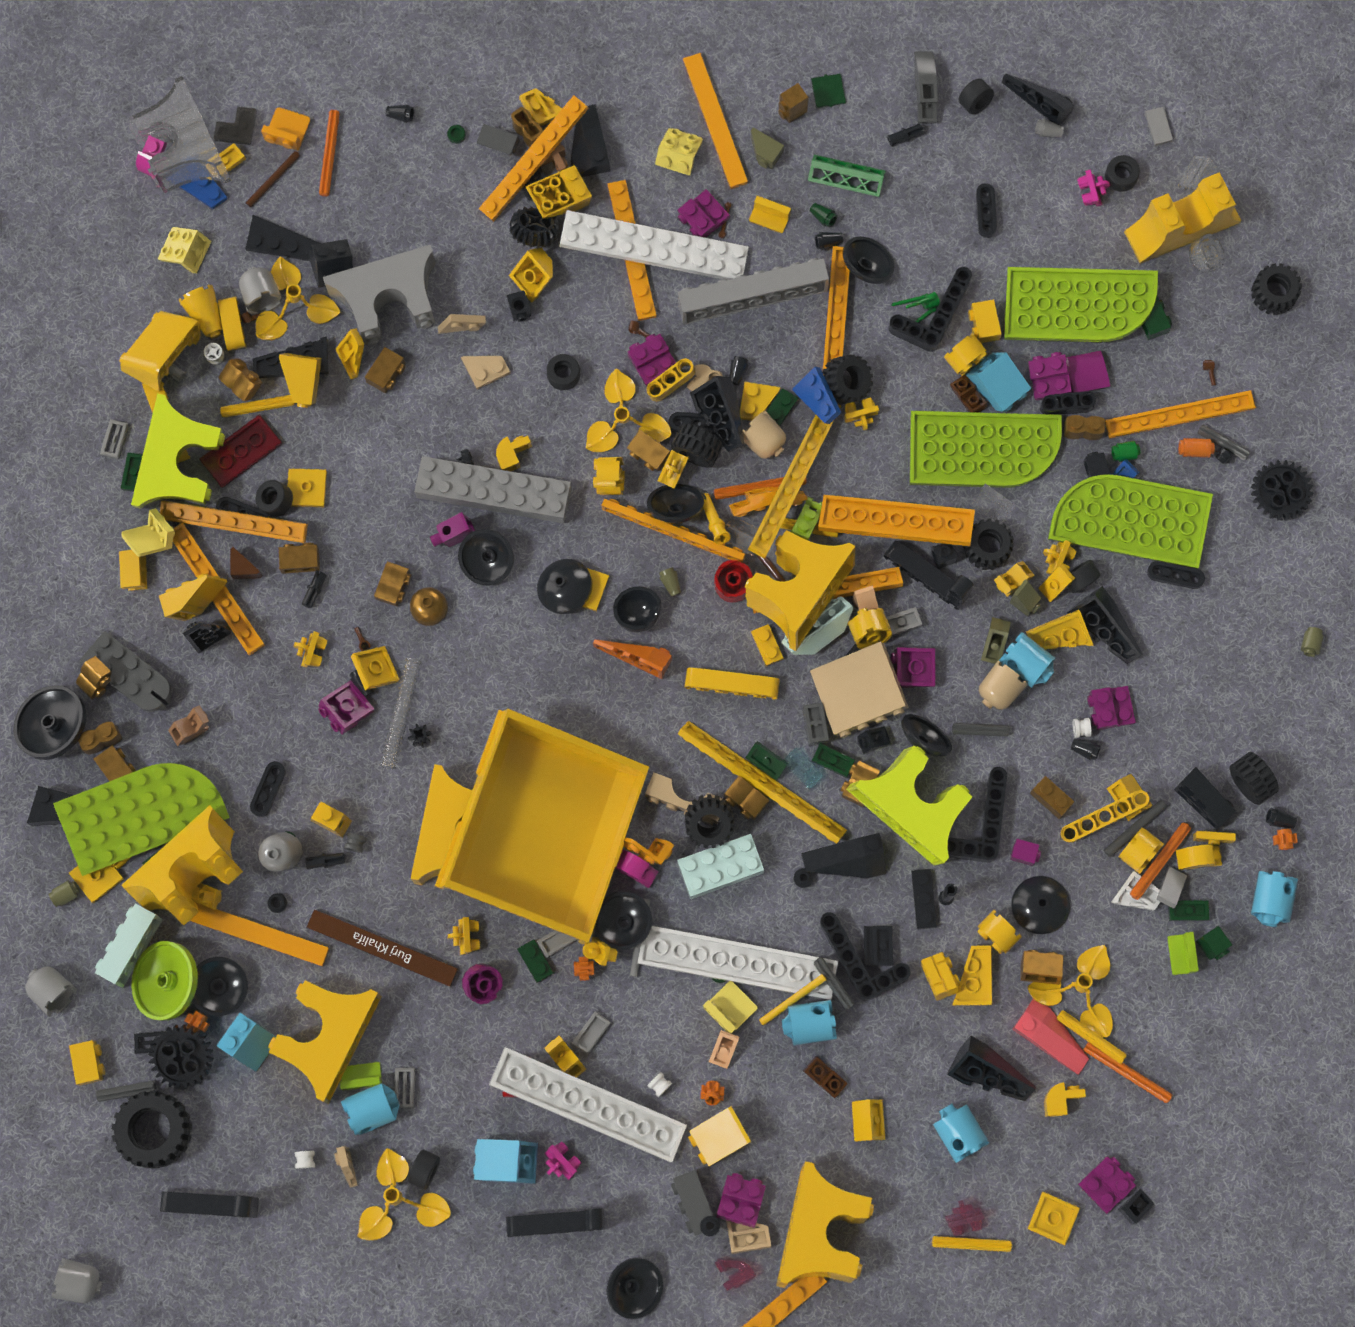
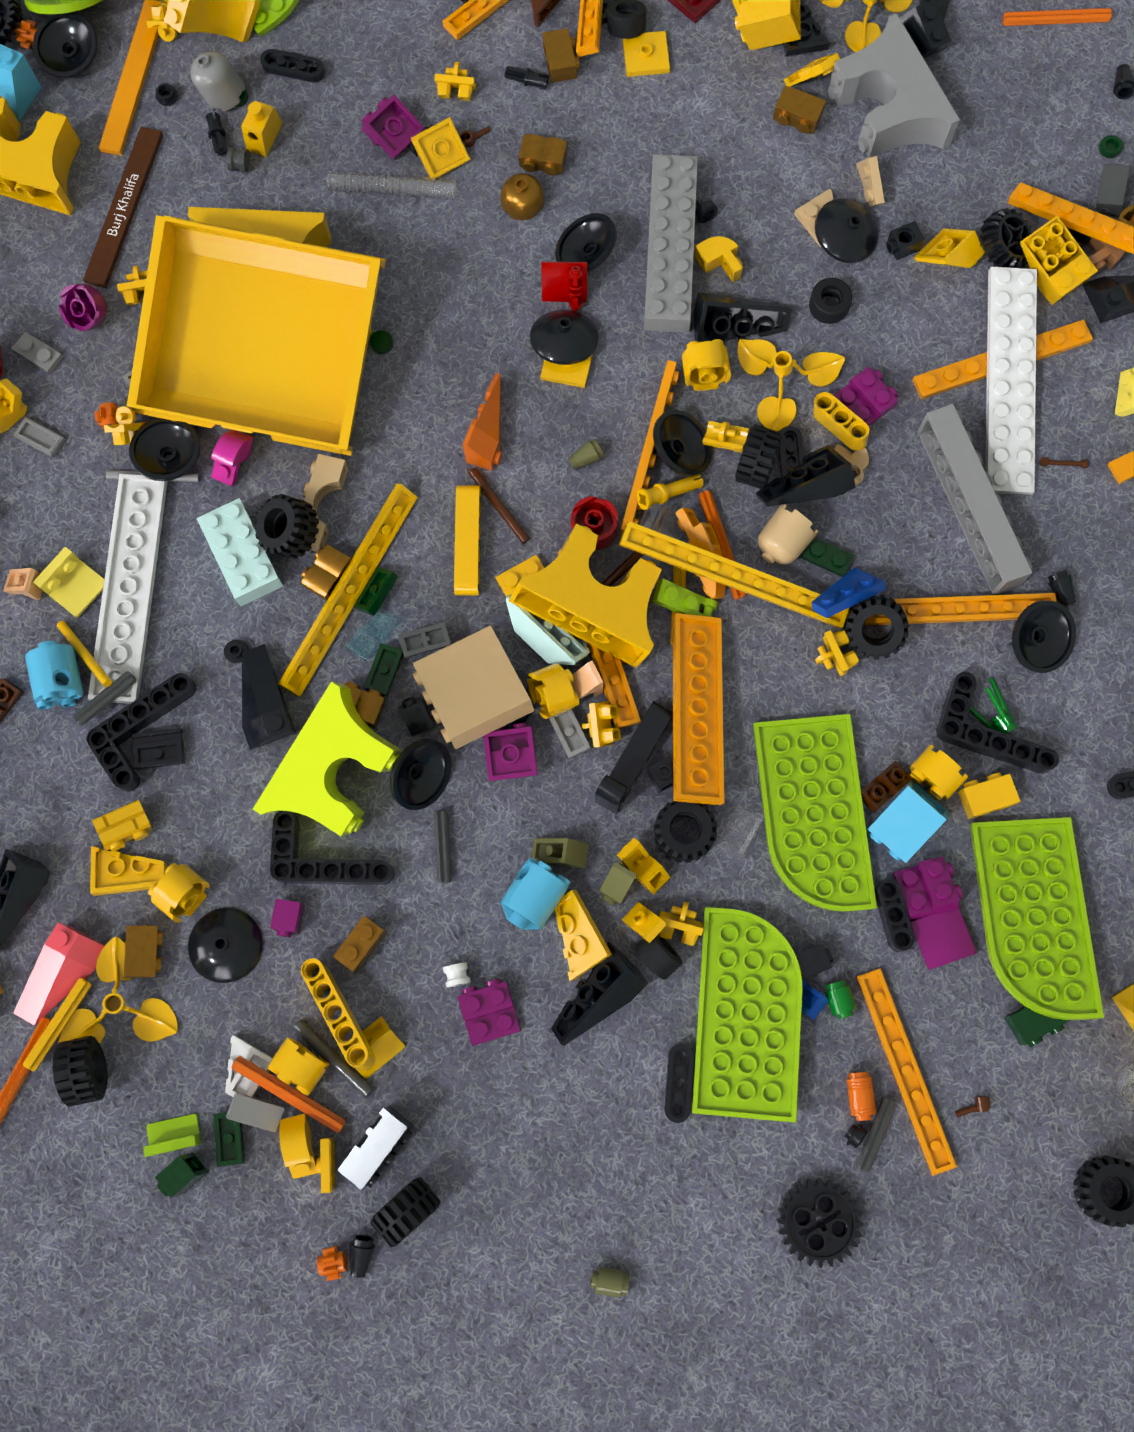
camera: 85 degrees right, 0 degrees up
(421, 741) = (367, 207): black gear -> none
(453, 530) = (616, 205): magenta torso -> none
(502, 357) = (840, 236): none -> black dish
(512, 1030) = (37, 352): none -> light grey plate
(519, 577) = (564, 283): none -> red hinge
(535, 961) = (115, 367): dark green plate -> none
(566, 451) = (735, 318): none -> black wedge
(634, 328) = (902, 374): reddish brown hand -> none
(637, 609) = (542, 416): black cylinder -> none
(649, 450) = (748, 405): pearl gold brick -> none
(656, 853) = (243, 462): light orange bracket -> none
(702, 214) = (1065, 433): magenta plate -> none
(704, 656) = (499, 506): none -> reddish brown bar
(737, 369) = (869, 499): black cone -> none
(756, 399) = (834, 526): yellow wing -> none
(770, 214) = (1082, 514): yellow panel -> none
(823, 214) = (1095, 578): dark green cone -> none
(897, 598) = (600, 724): none -> yellow hips
(923, 899) = (221, 798): black plate -> none
(947, 896) = (225, 825): black pin -> none
(1000, 687) = (495, 863): tan cylinder -> none
(1086, 748) = (430, 983): black cone -> none
(1089, 428) = (864, 948): pearl gold brick -> none
(1131, 1014) = (80, 1071): none -> black tyre
(1274, 898) = (247, 1253): medium azure cylinder -> none

